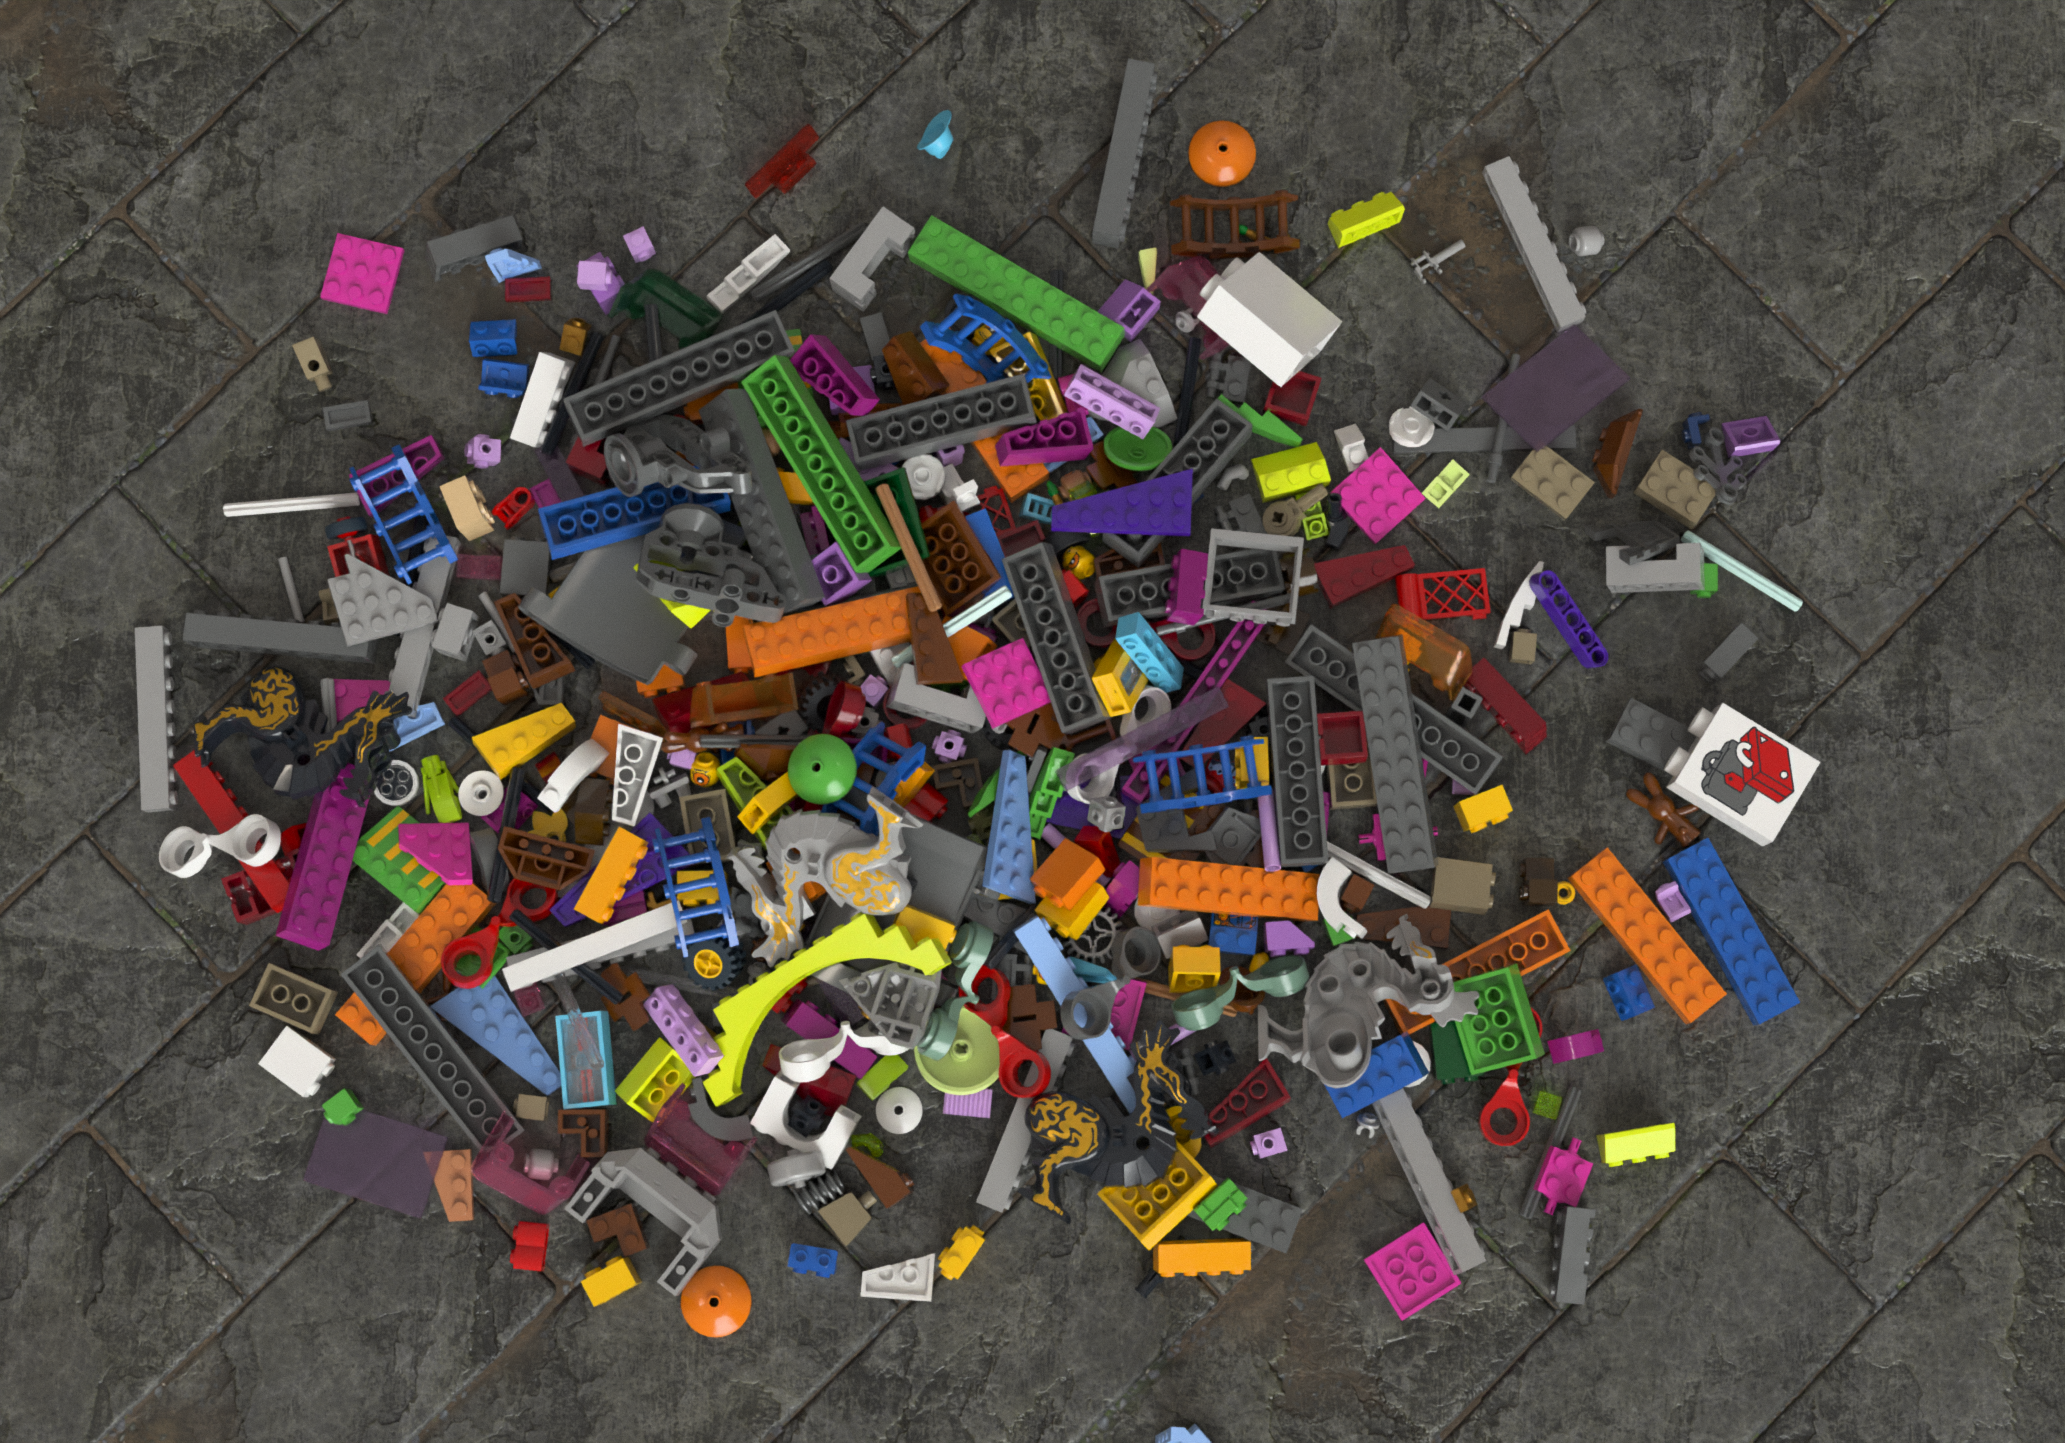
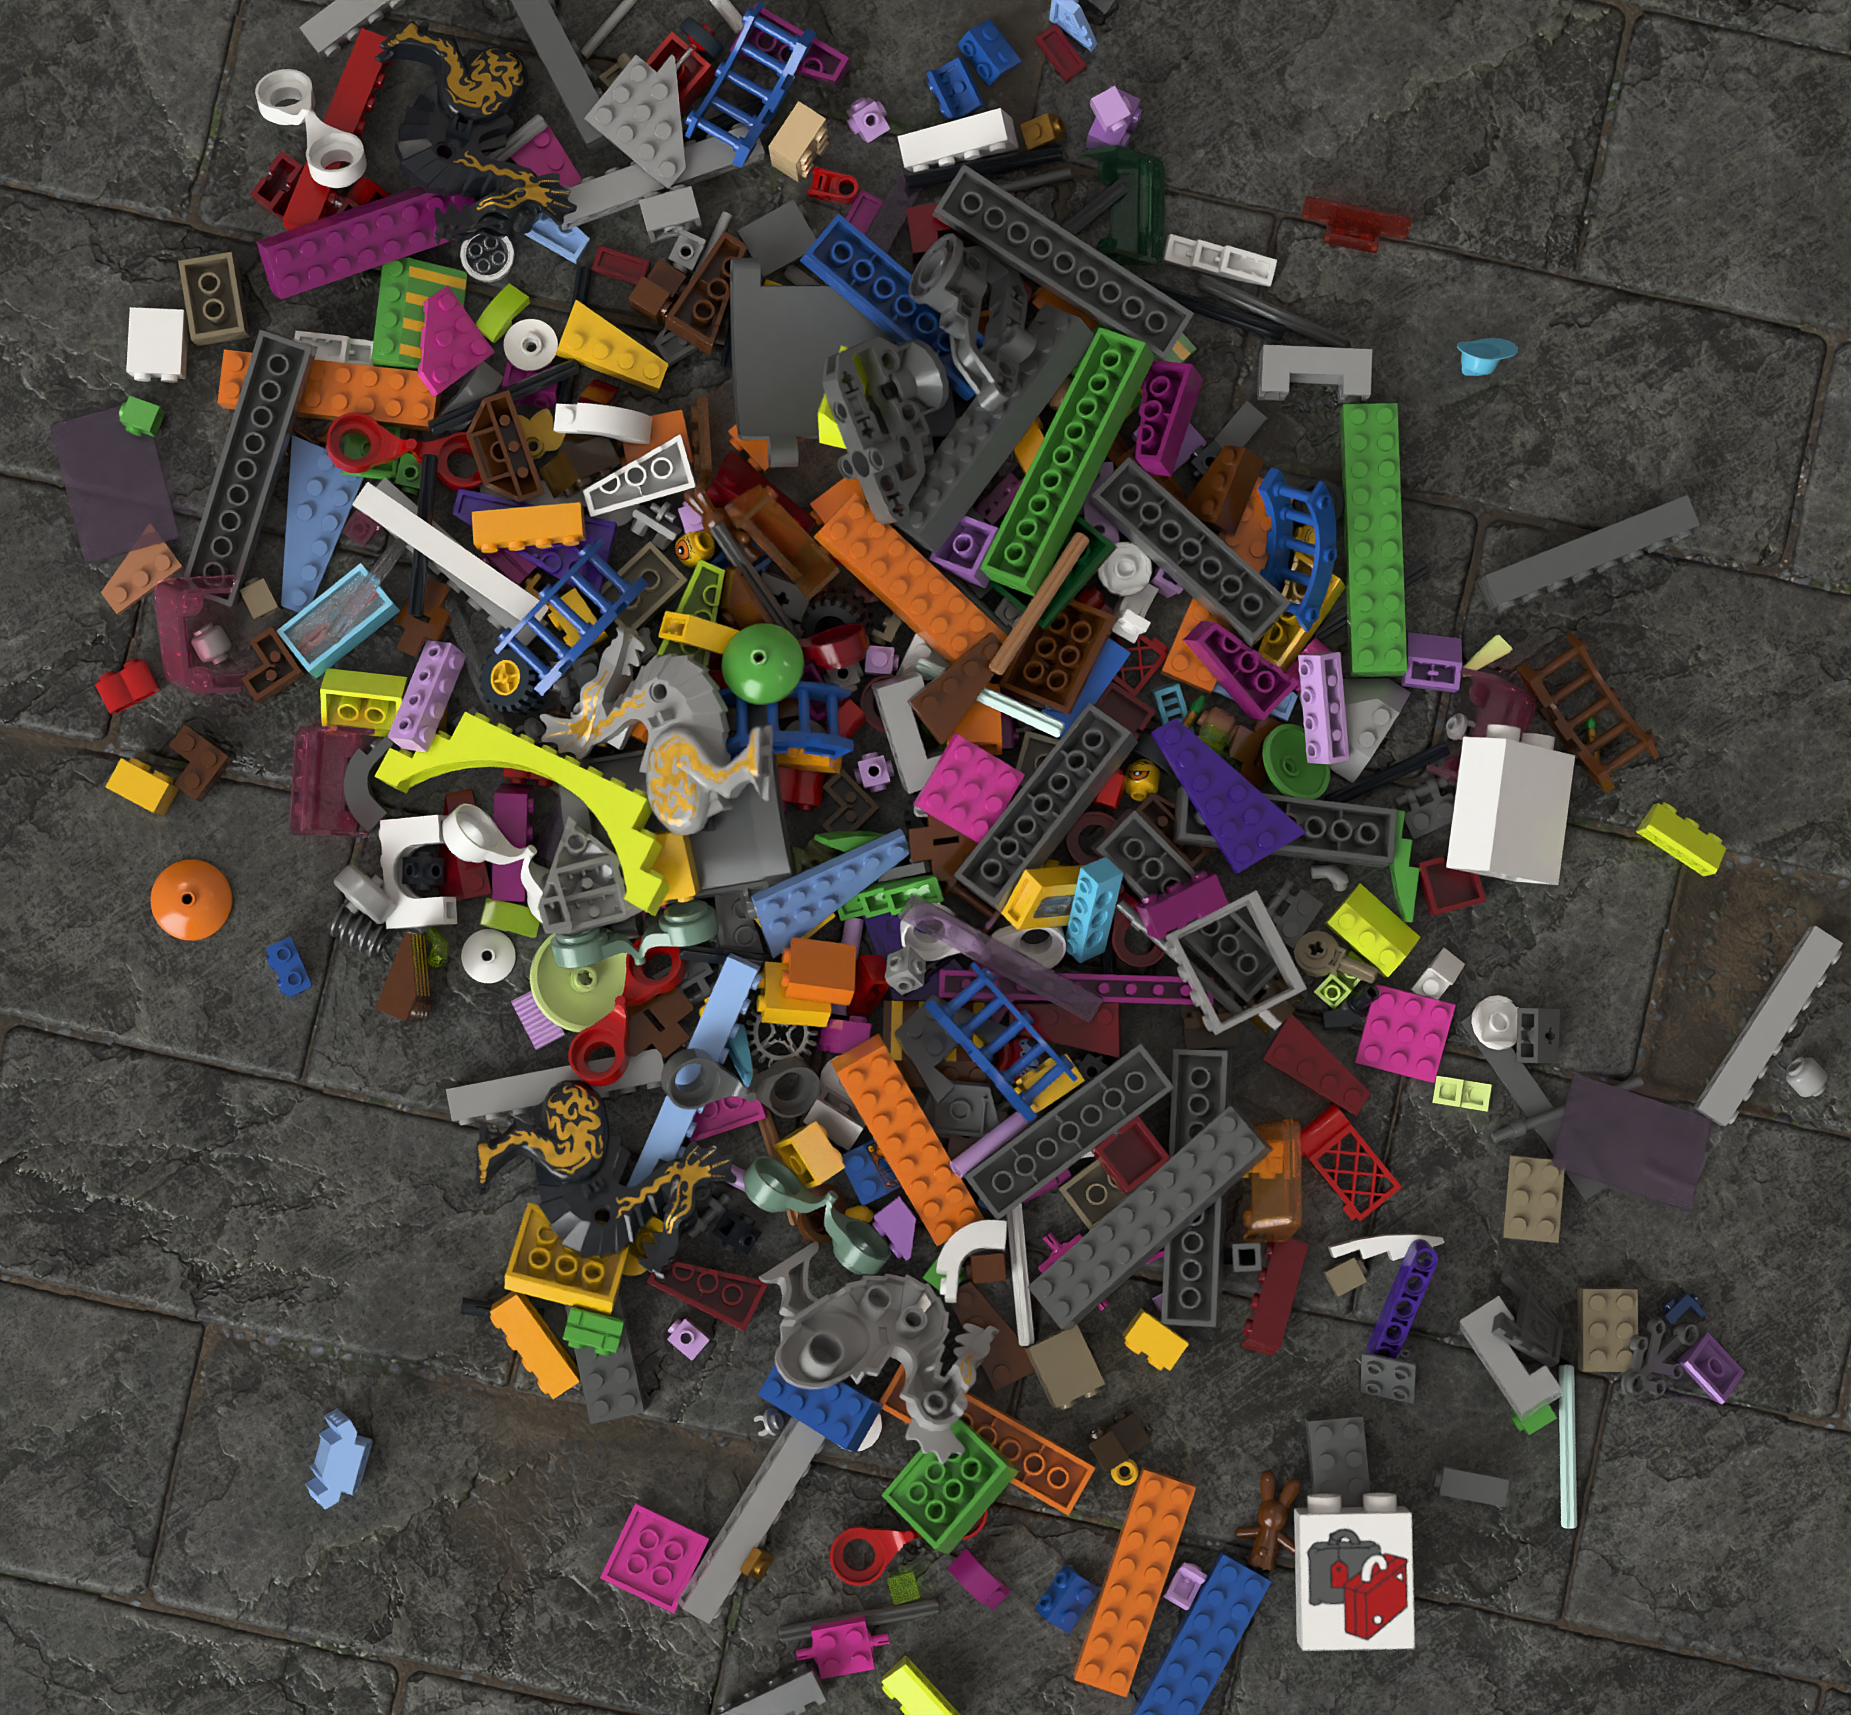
camera: 55 degrees right, 5 degrees up
(431, 768) = (524, 280): lime plant -> none
(479, 567) = (751, 192): clear pink slope -> none
(639, 245) = (1176, 133): lavender brick -> none
(665, 1196) = (259, 782): light grey wedge -> none
(848, 1215) = (353, 973): dark tan torso -> none
(901, 1281) = (325, 1066): white wing -> none
(965, 1246) = (385, 1107): yellow brick -> none
(1219, 167) = (1638, 656): orange dish -> none
(1435, 260) = (1689, 938): light grey piece -> none
(1448, 1054) = (887, 1460): dark green brick -> none
(1614, 451) = (1607, 1242): reddish brown wedge -> none
(1614, 661) = (1389, 1376): none -> dark grey hinge

